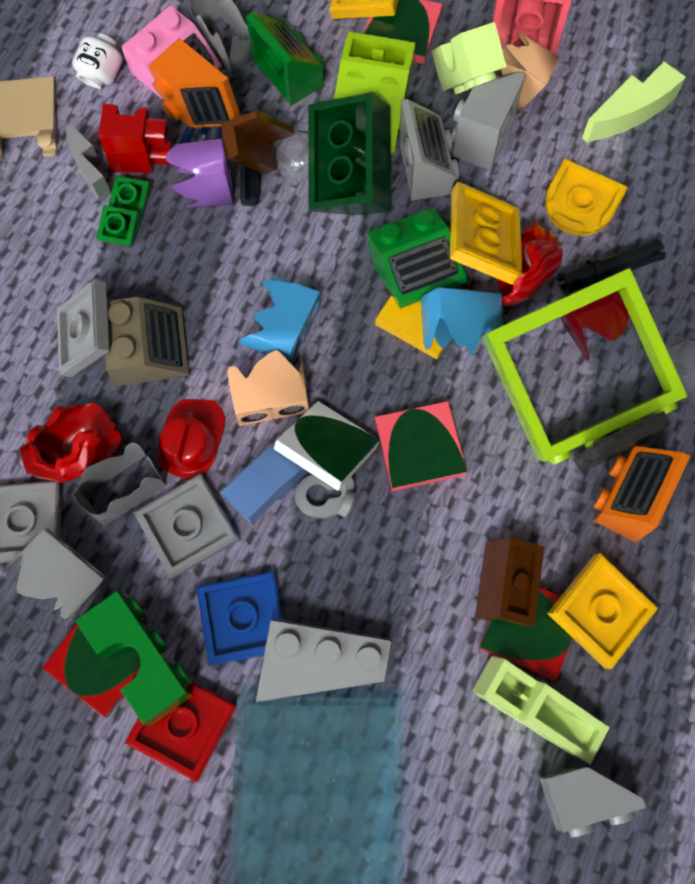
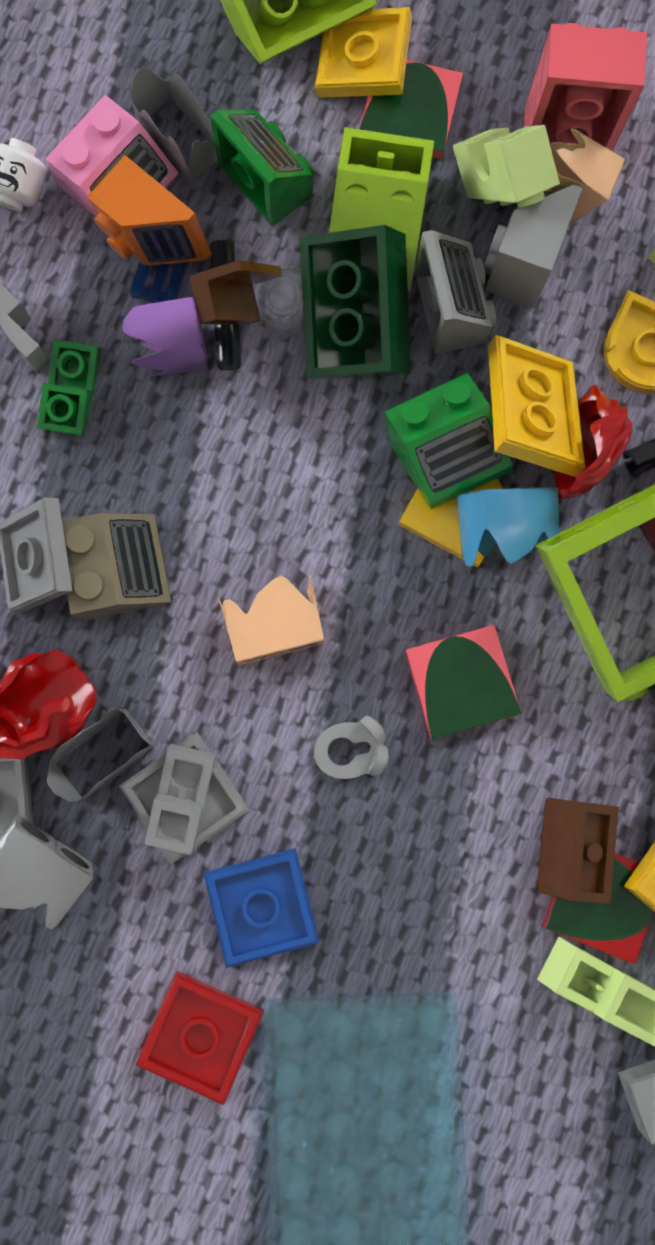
camera: 10 degrees left, 10 degrees up
(90, 675) = (96, 966): dark green tile -> none
(133, 141) = (74, 294): red hips -> none
(159, 684) = (173, 998): green arch -> none
(182, 523) = (180, 799): none -> light grey slope
(191, 437) = (180, 684): red piece -> none
(262, 484) = (290, 726): medium blue slope -> none
(284, 320) = (290, 530): dark azure piece -> none
(318, 659) = (356, 954): light grey wing -> none
(326, 445) = (350, 692): dark green tile -> none

